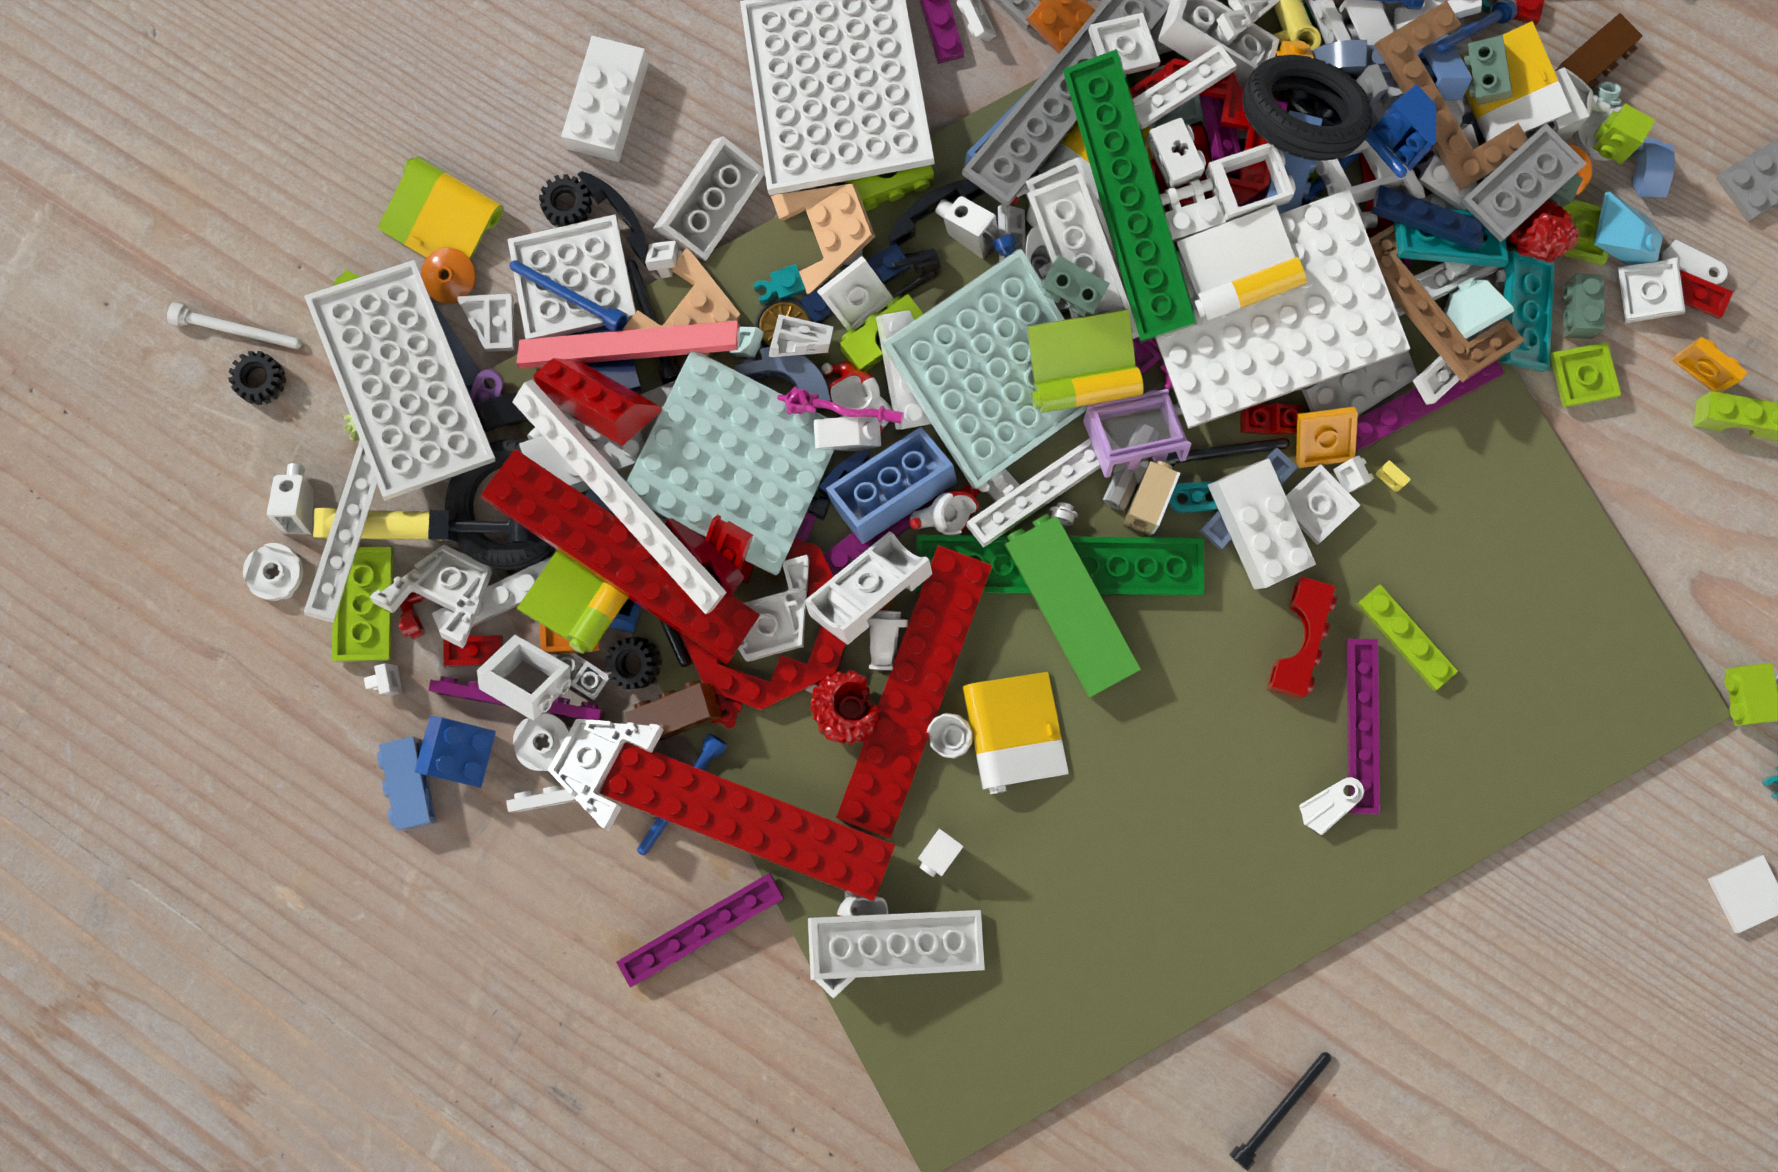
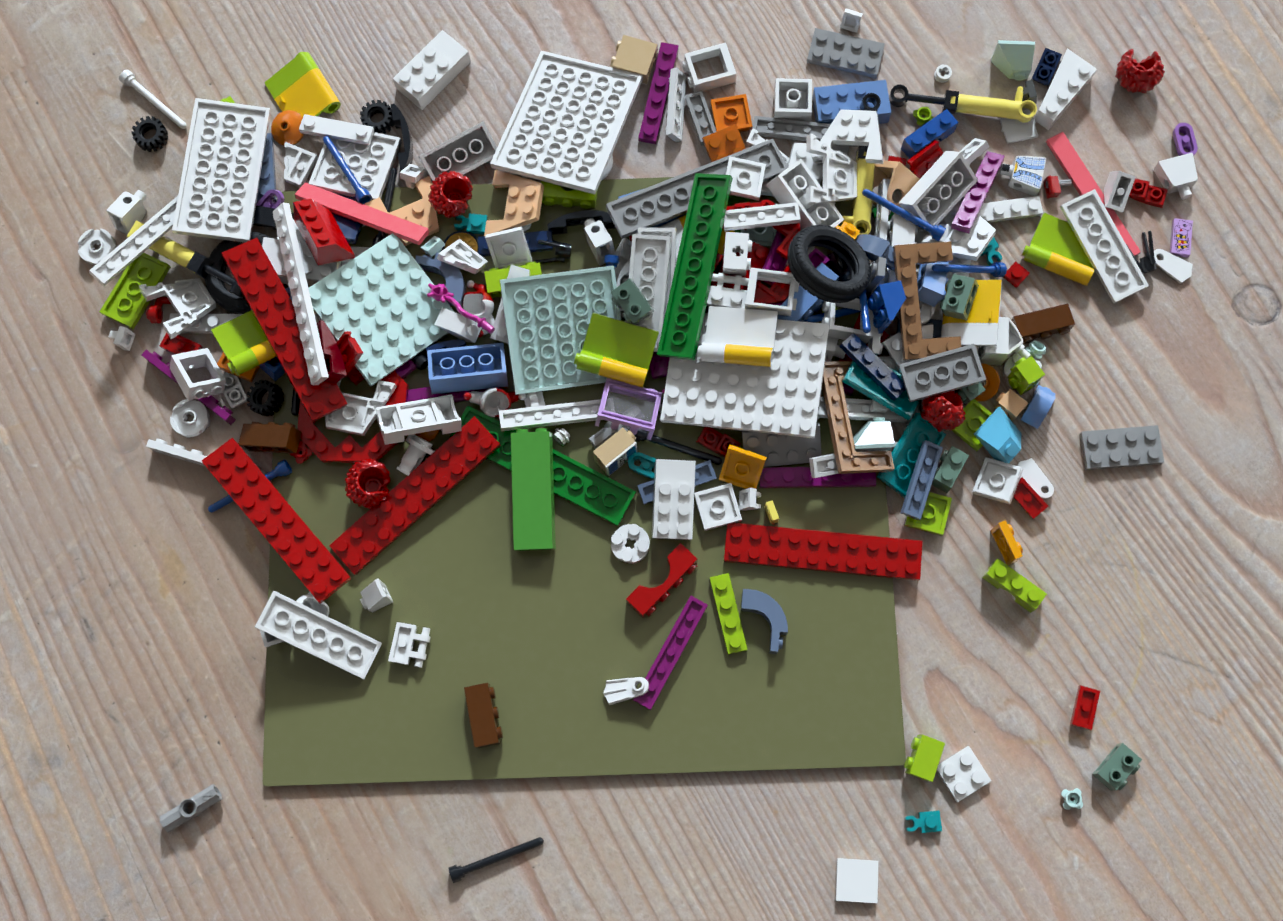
camera: 30 degrees right, 5 degrees down
(406, 790) = (101, 402): medium blue brick -> none
(455, 751) = (136, 397): blue brick -> none
(521, 245) = (336, 129): none -> white plate
(589, 756) = (206, 438): white wing -> none
(700, 930) = (216, 570): magenta plate -> none
(732, 258) = (450, 194): none -> red hair
(950, 735) = (421, 531): white hair -> none
(1009, 895) = (403, 643): none -> white plate
(1015, 730) = (461, 548): yellow door -> none
(1168, 935) = (483, 715): none -> reddish brown brick
(1215, 615) = (620, 538): none -> white plate
(1464, 607) = (766, 606): none -> sand blue arch
(1482, 494) = (823, 551): none -> red plate
(1561, 337) = (921, 480): none -> sand blue plate
(1615, 178) = (1011, 404): none -> light nougat brick

